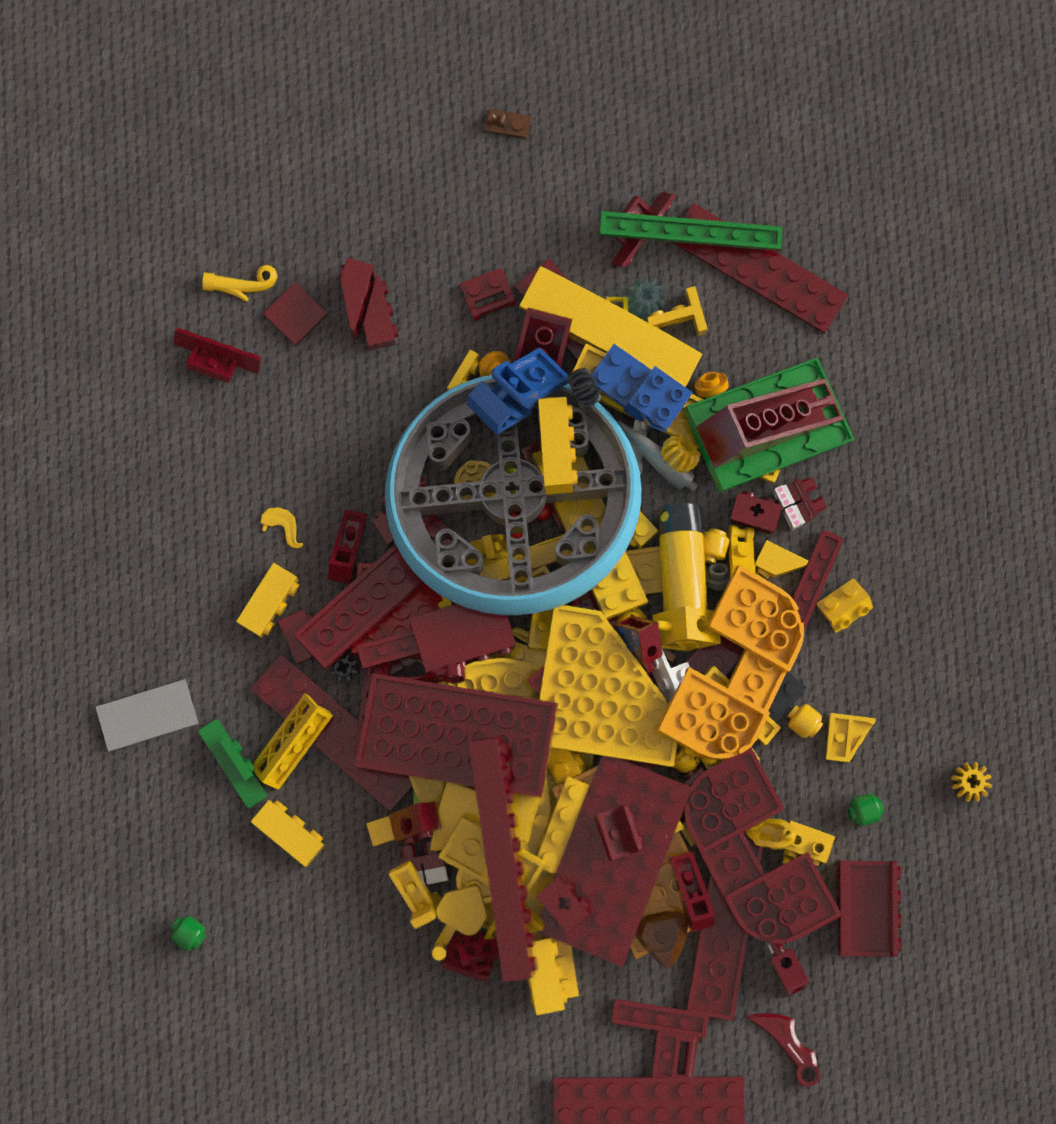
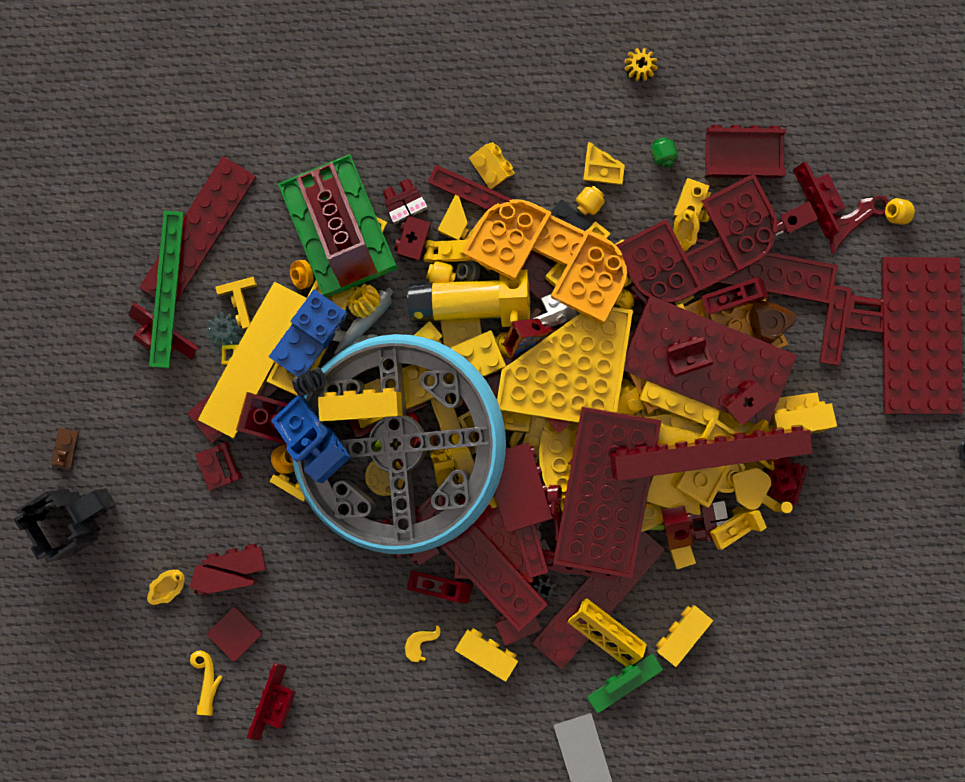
camera: 90 degrees left, 5 degrees up
(188, 933) = (767, 719): green head -> none
(349, 236) = (165, 587): none -> yellow arm
(435, 137) = (81, 510): none -> black piece
(800, 1098) = (899, 211): none -> yellow head
(816, 1002) = (822, 197): none -> dark red bracket

